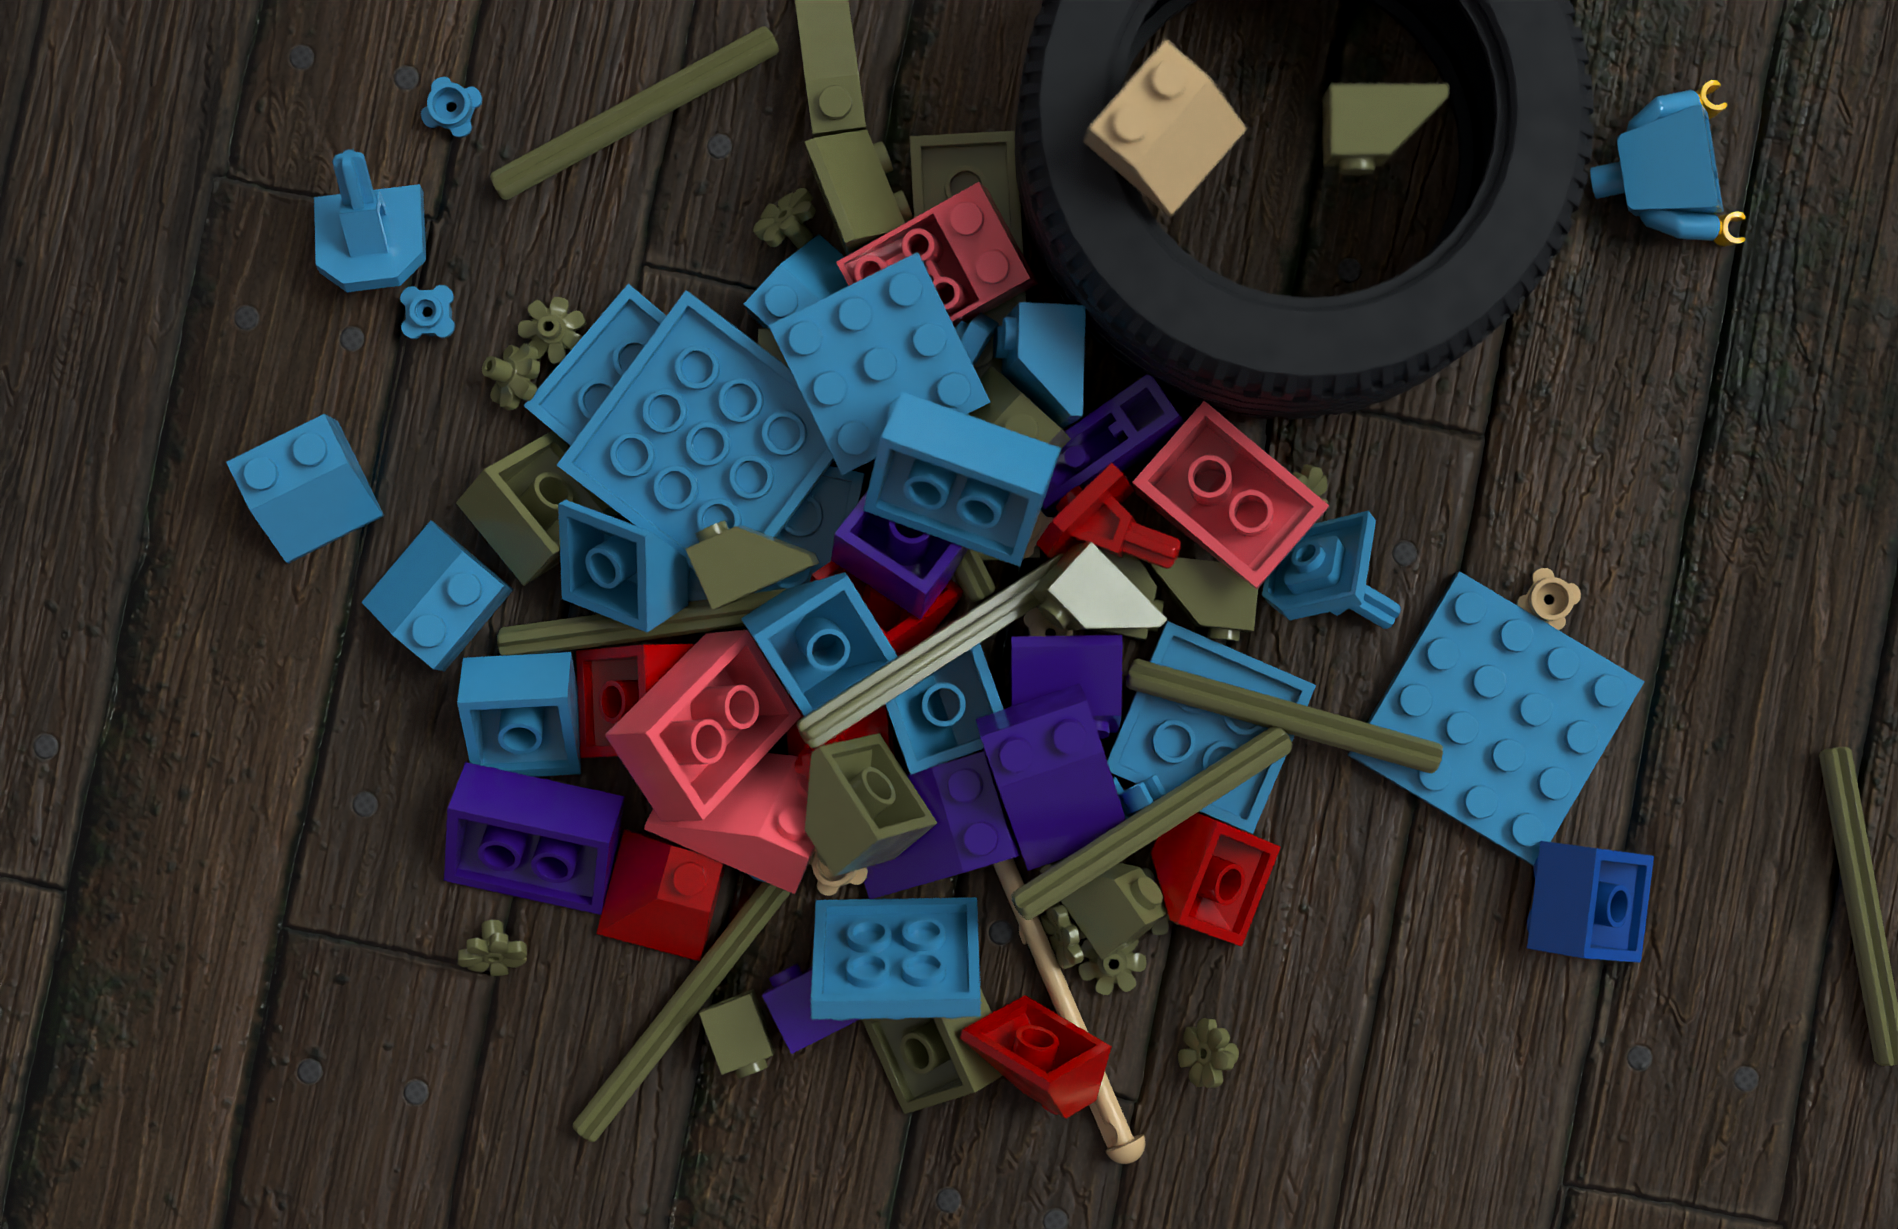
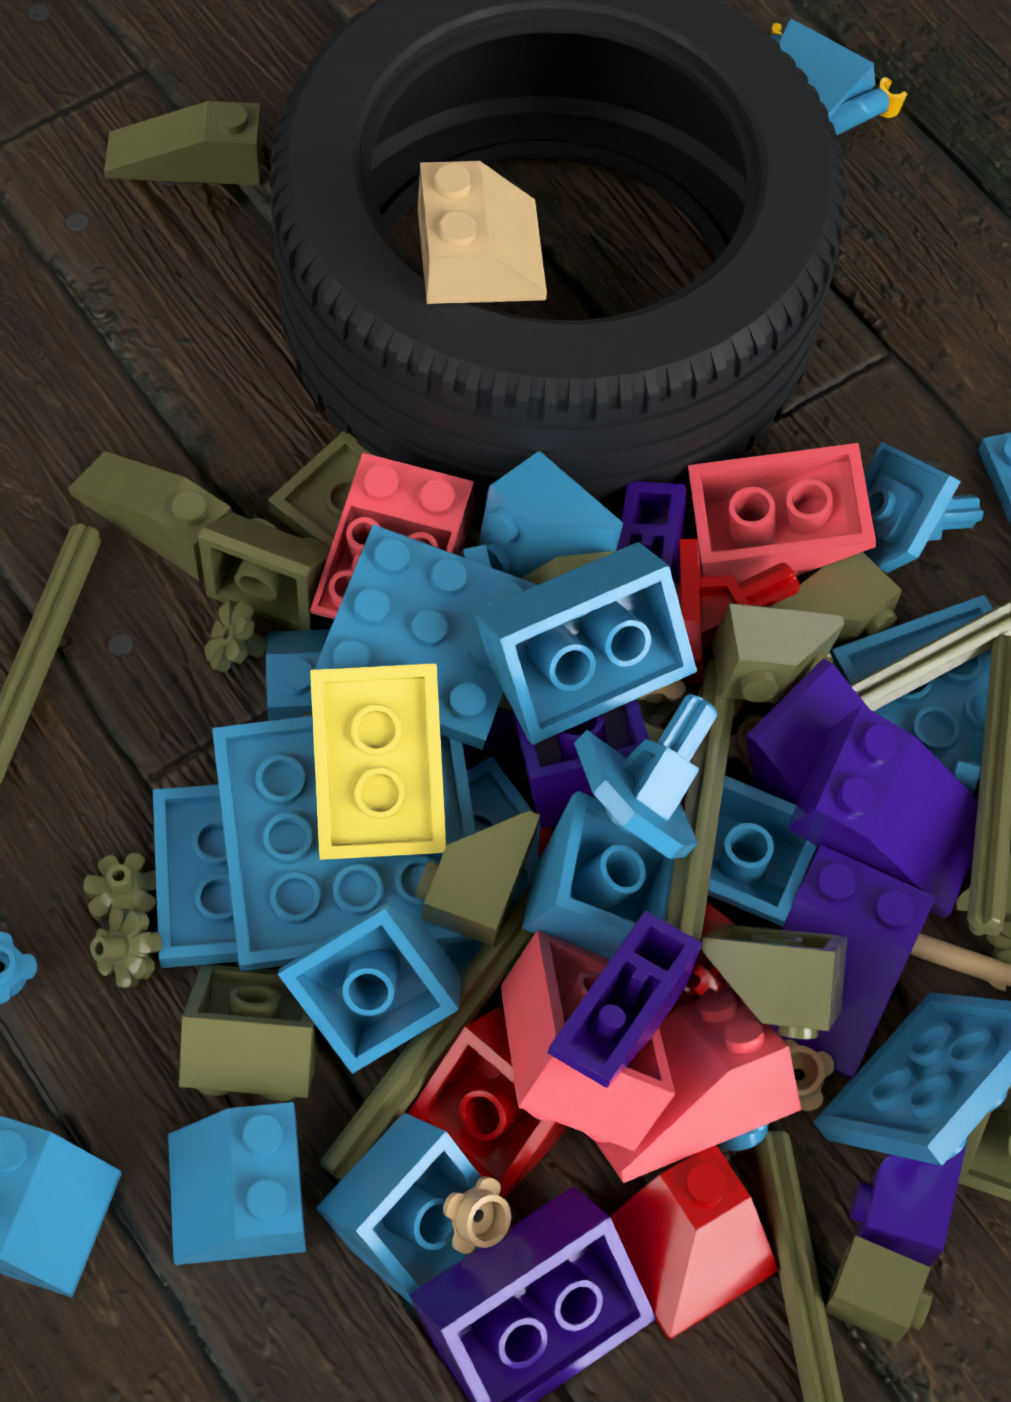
camera: 45 degrees left, 25 degrees down
(547, 759) = (491, 1220): none -> tan plate
(720, 742) = (627, 1000): none -> dark purple slope
(752, 426) = (378, 761): none -> light yellow plate
(880, 620) = (647, 786): none -> dark azure piece
(1372, 121) = (616, 117): olive slope -> none

